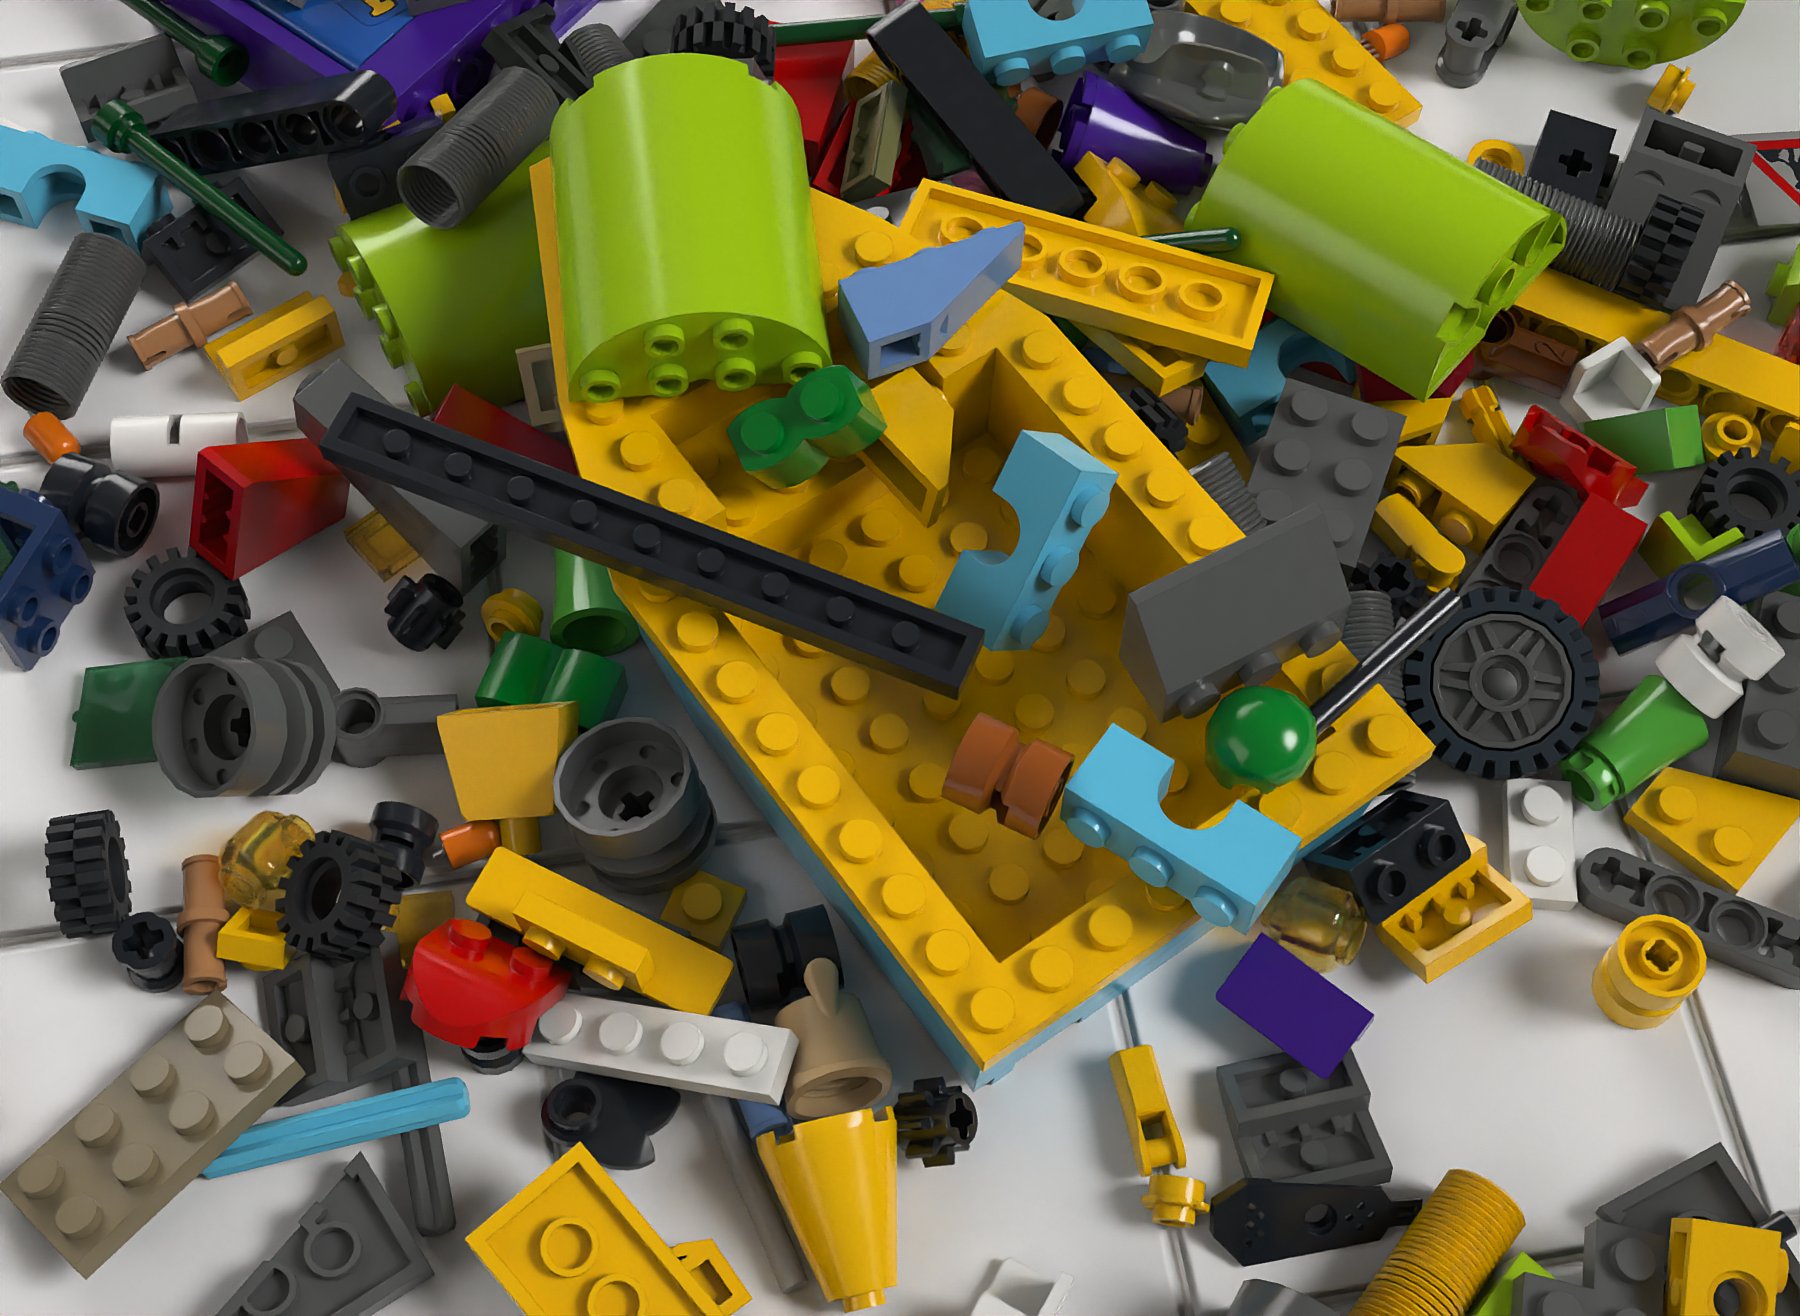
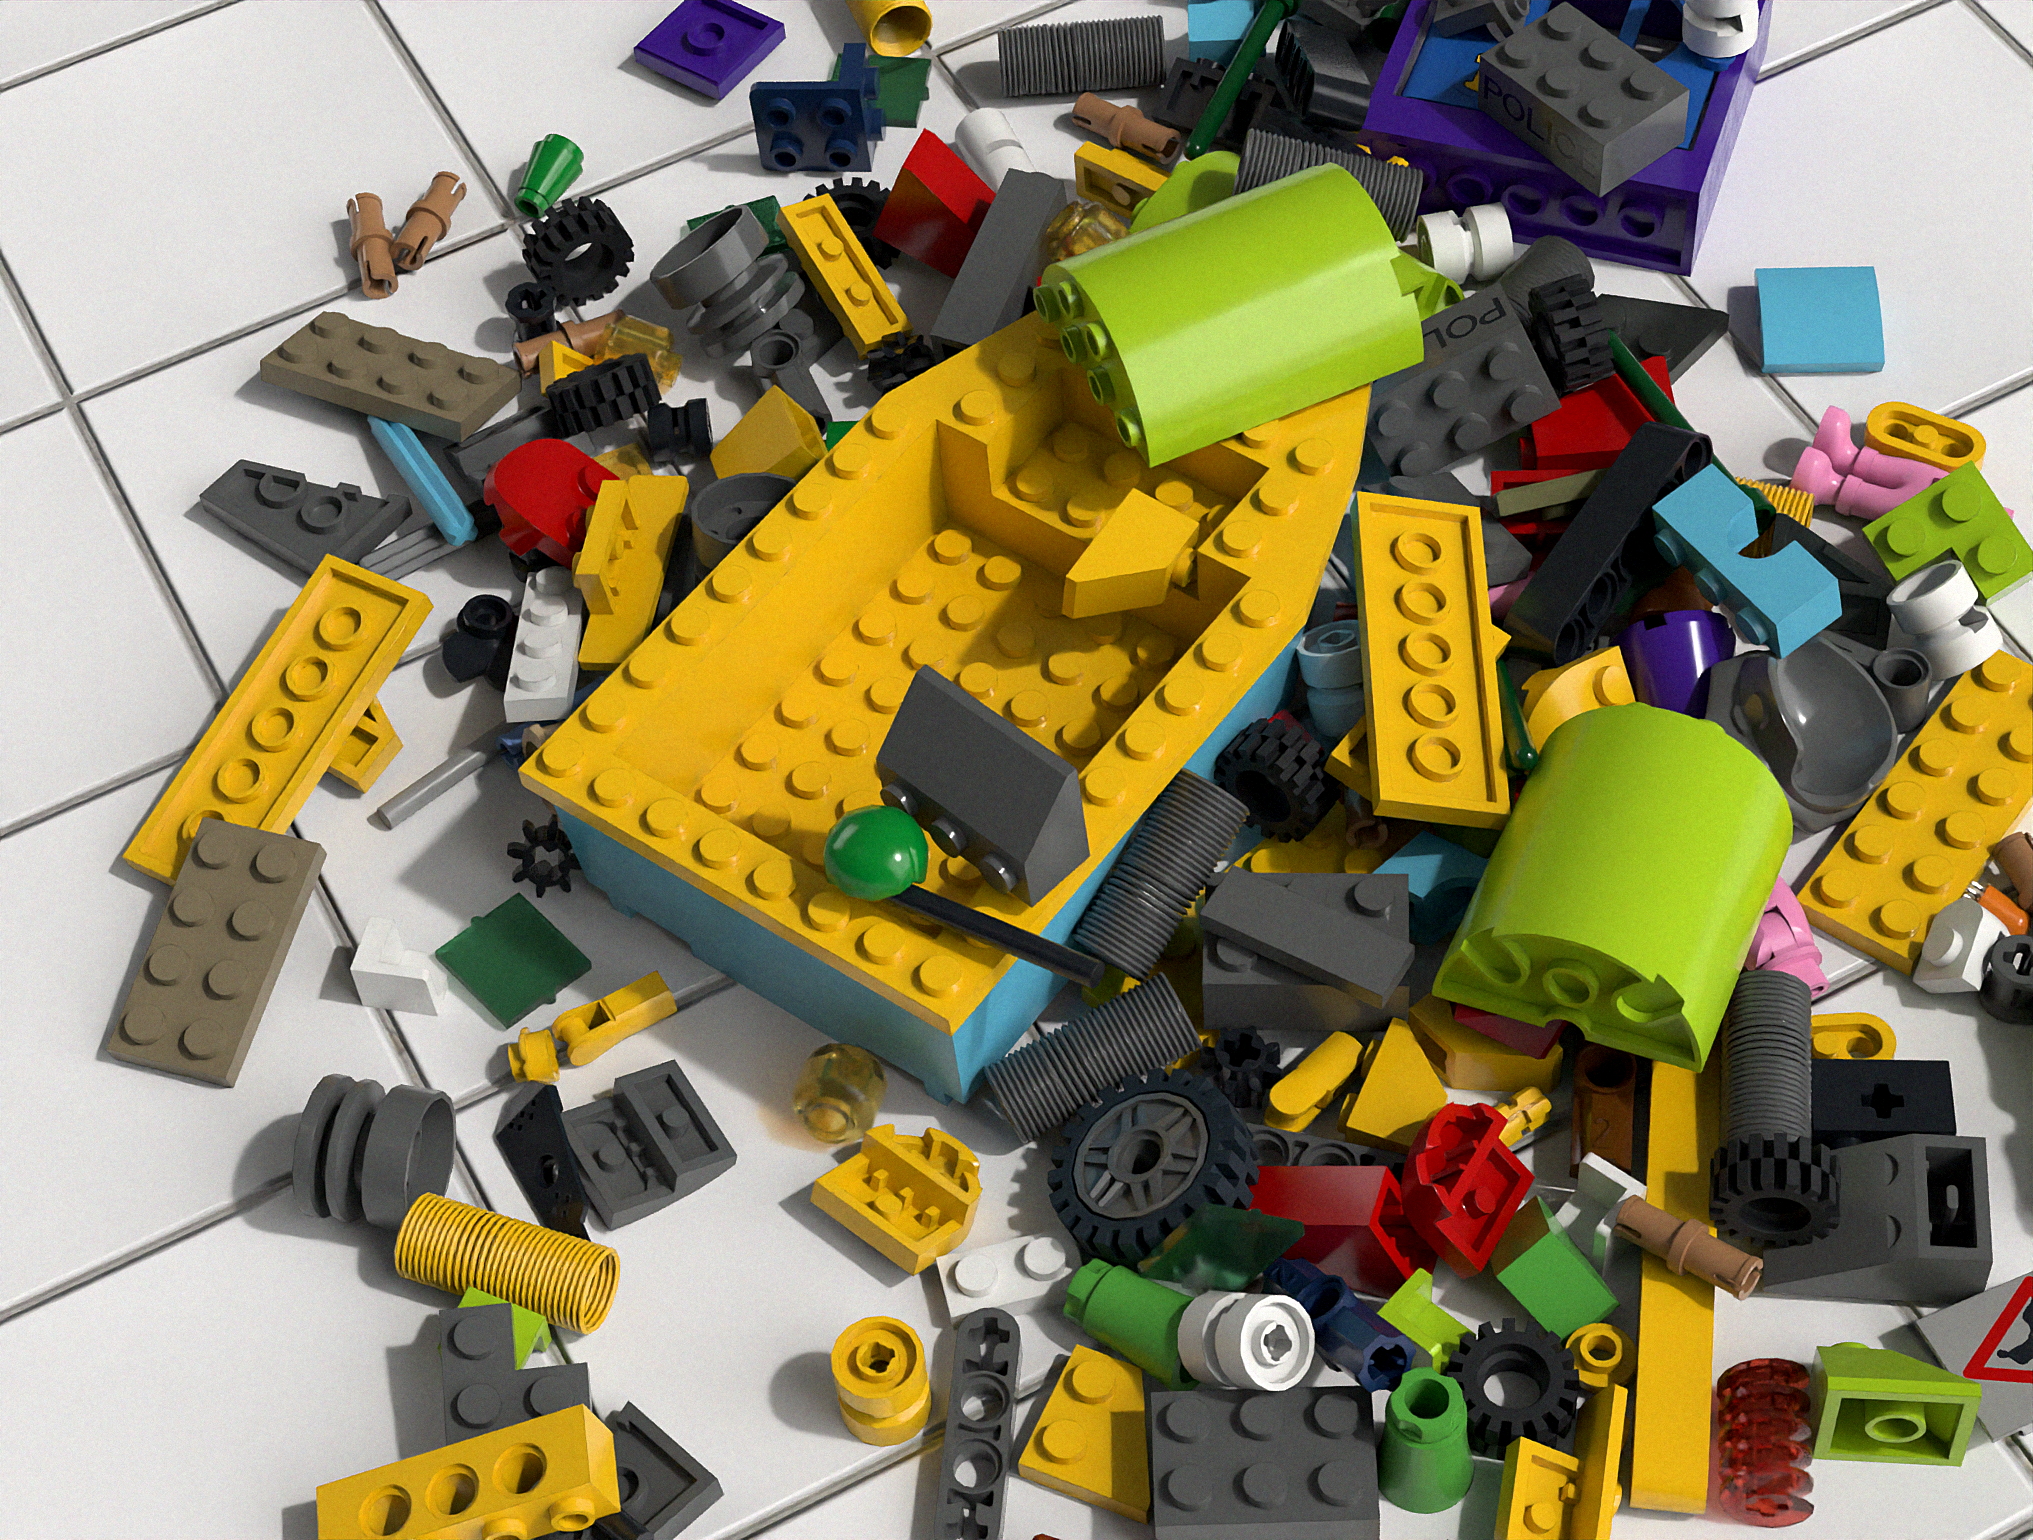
camera: 80 degrees right, 10 degrees down
(49, 436) = (976, 91): orange piece -> none
(103, 505) = (903, 119): black wheel -> none
(285, 619) = (842, 272): none -> yellow plate
(414, 371) = (1082, 228): none -> clear yellow head
(469, 842) = (697, 470): orange piece -> none
(532, 45) = (1496, 222): pearl dark grey wing -> none
(655, 545) = (903, 402): black plate -> none
(796, 435) = (1079, 458): green brick -> none
(841, 1200) = (451, 807): yellow cone -> none
(918, 303) = (1244, 489): medium blue slope -> none
(1008, 776) = (763, 681): dark orange wheel -> none
(1034, 1195) = (513, 960): none -> clear green piece
(1058, 500) = (1059, 647): medium azure arch -> none
(1221, 869) = (768, 772): medium azure arch -> none
(1294, 1006) = (748, 1098): dark purple panel -> none
(1356, 459) = (1307, 936): none -> dark grey tile
(1392, 853) = (918, 1120): black bracket -> none
(1429, 69) = (1959, 948): none -> white plate
(1613, 646) = (1221, 1248): none -> clear green piece

